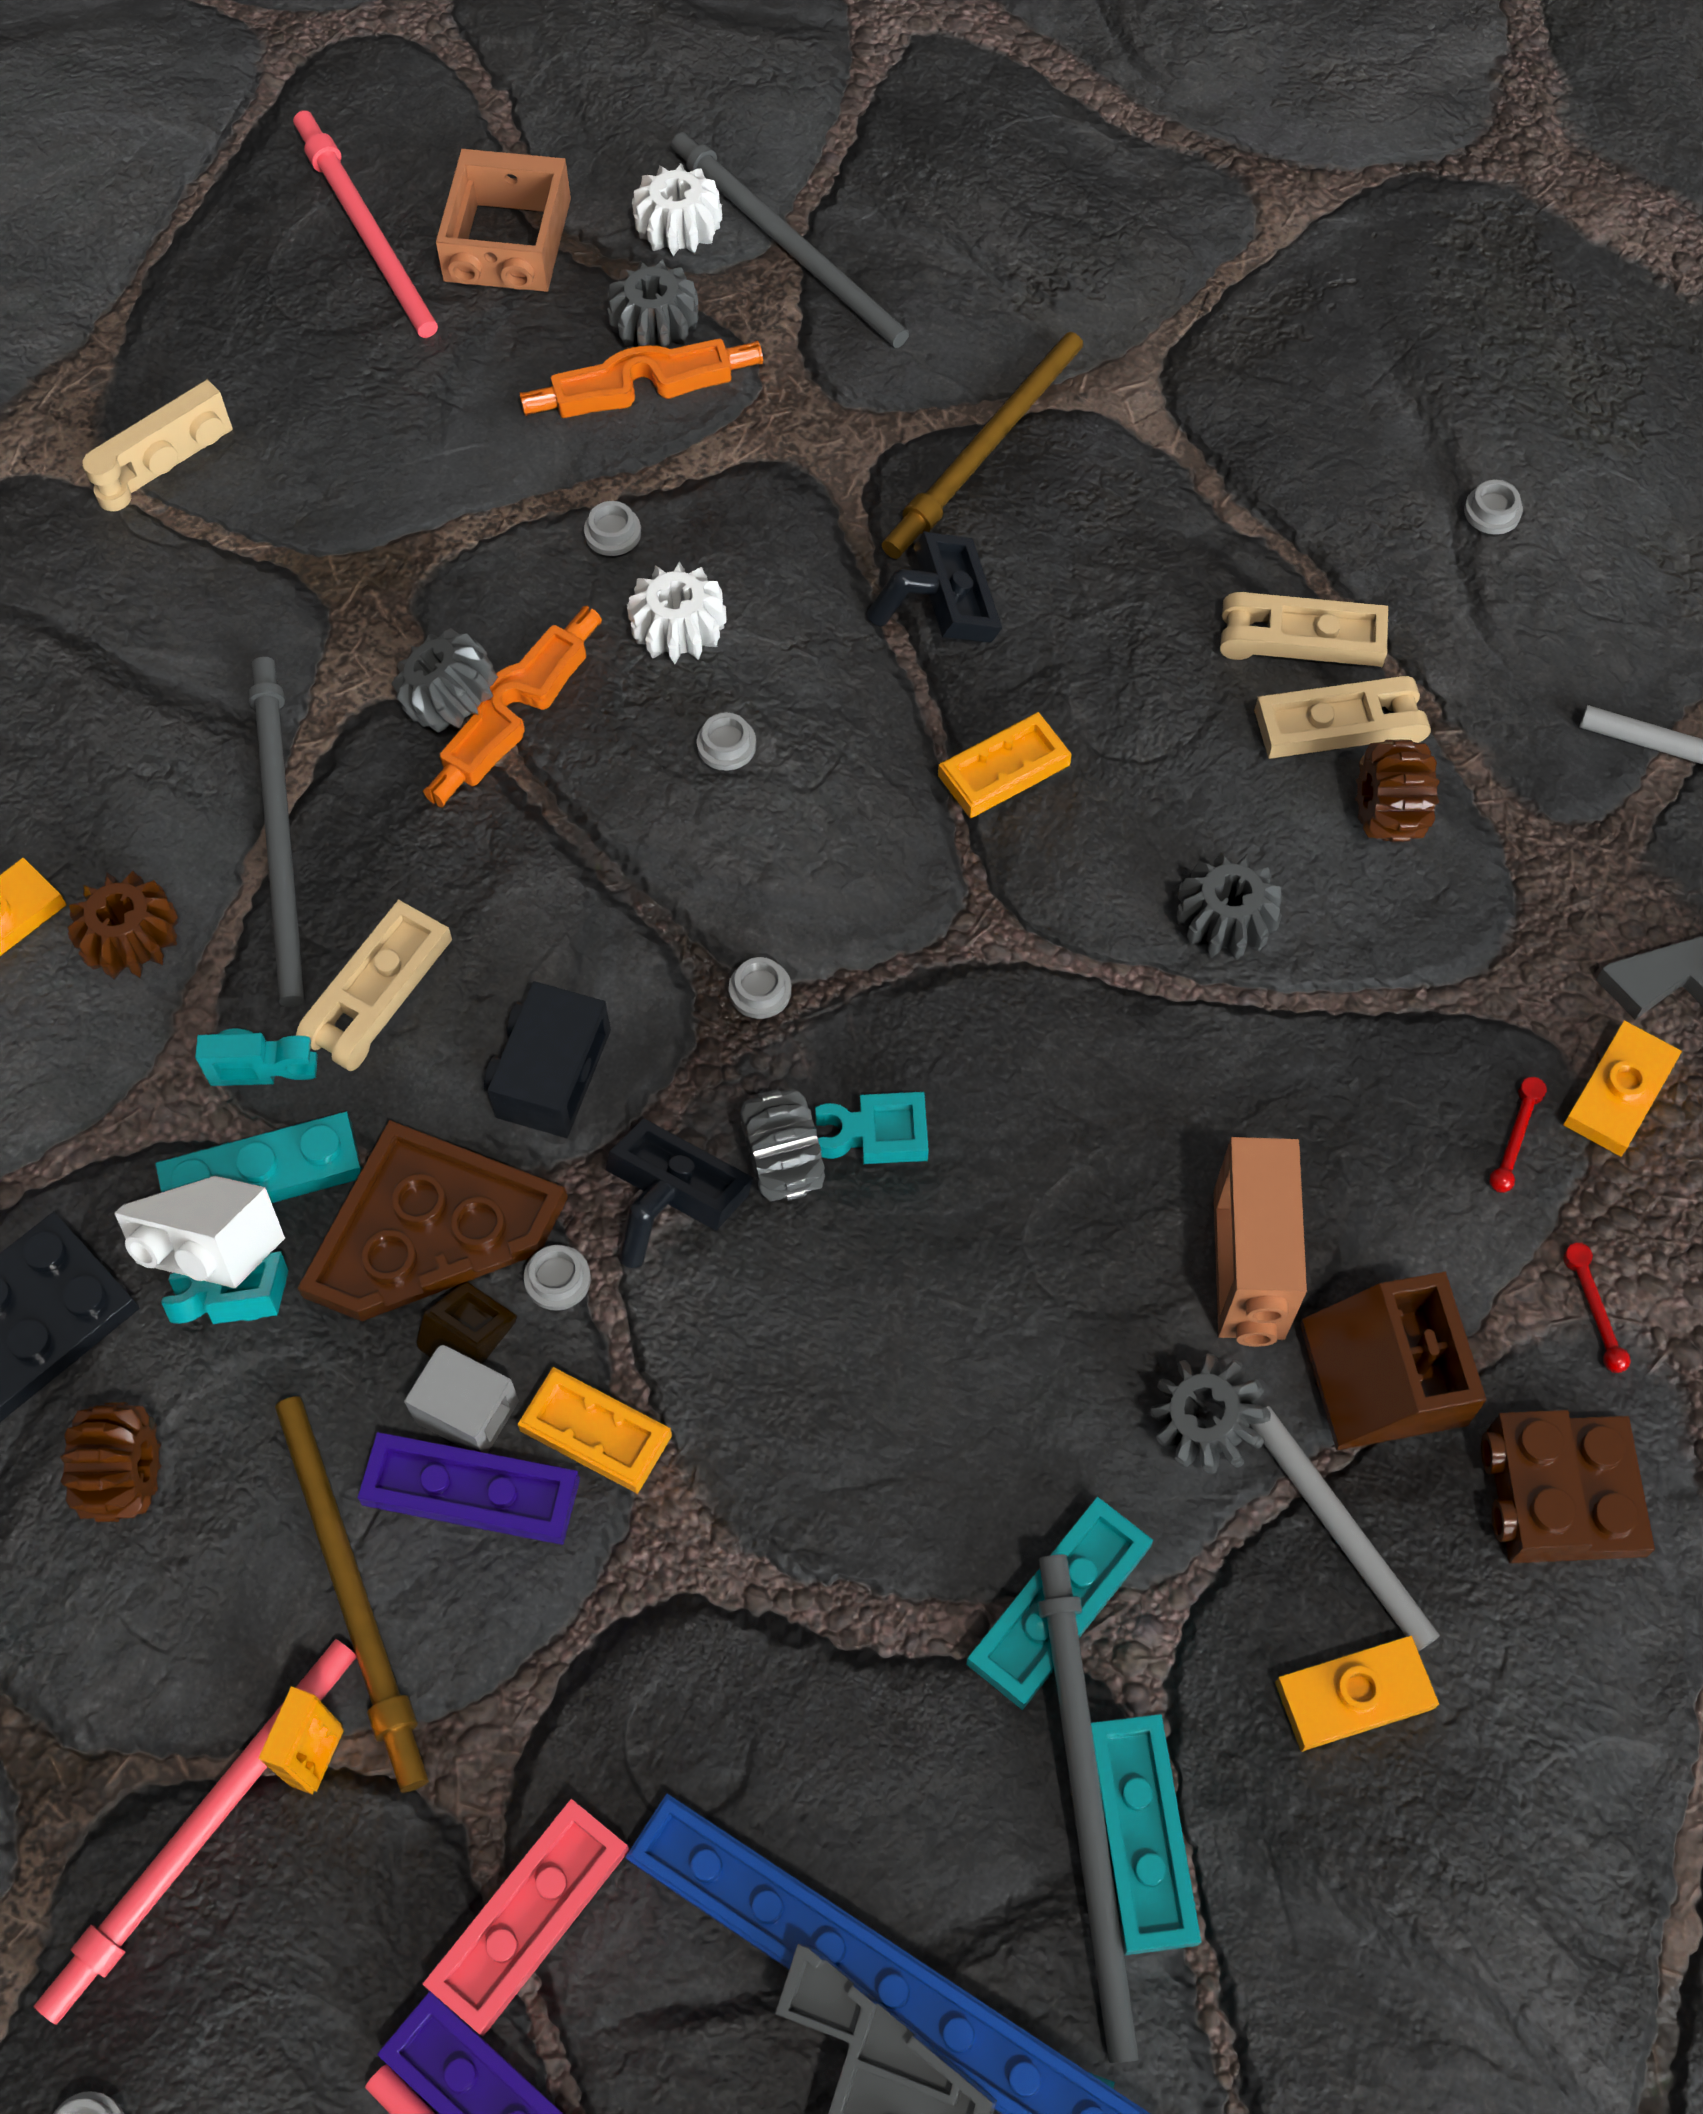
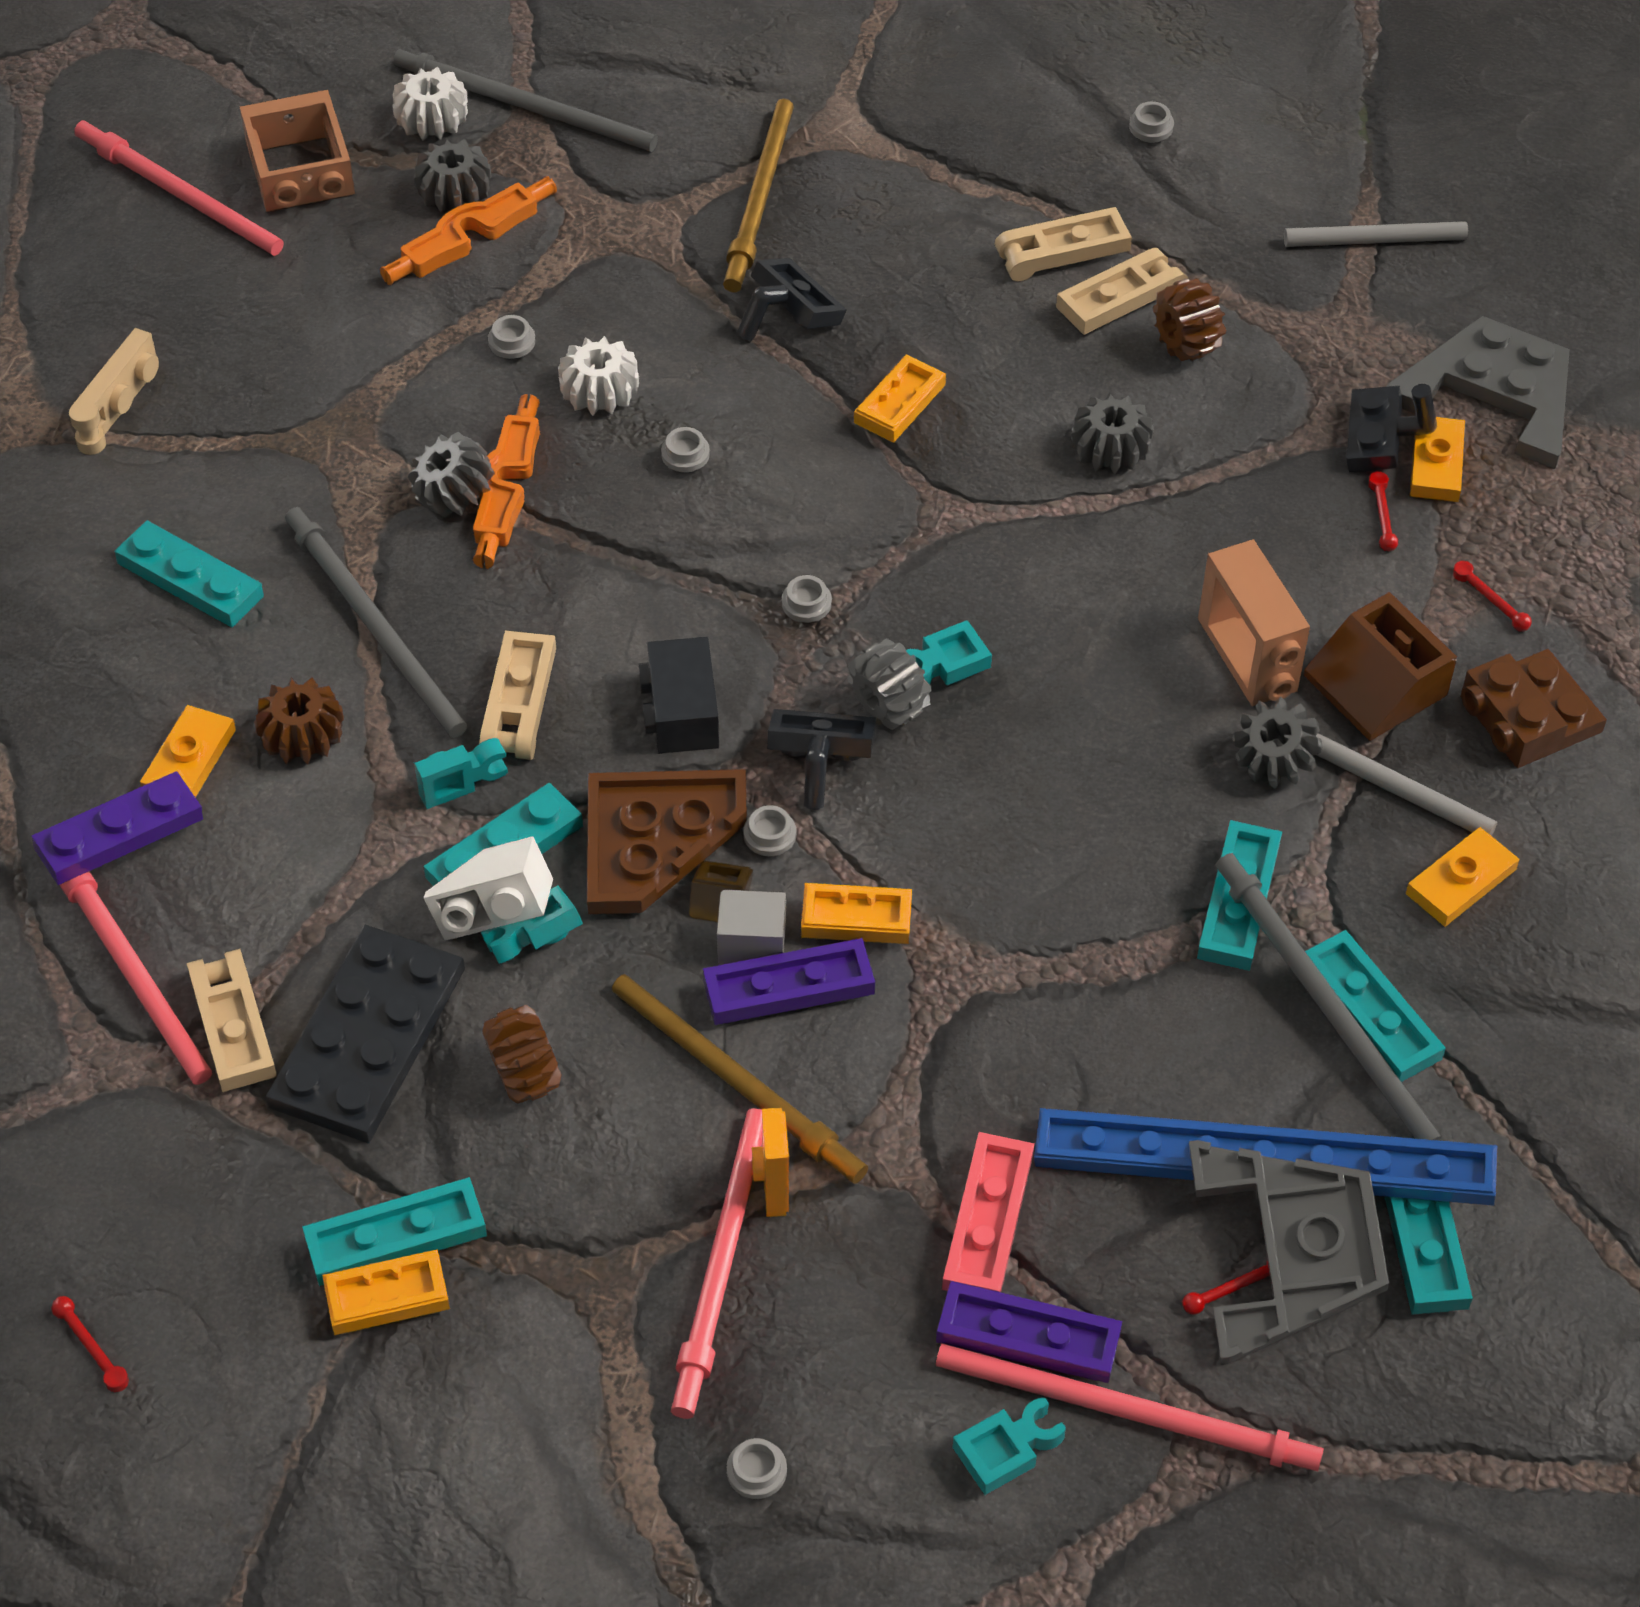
camera: 25 degrees left, 10 degrees down
(121, 694) = (189, 573): none -> teal plate
(1567, 1016) = (1378, 424): none -> black plate

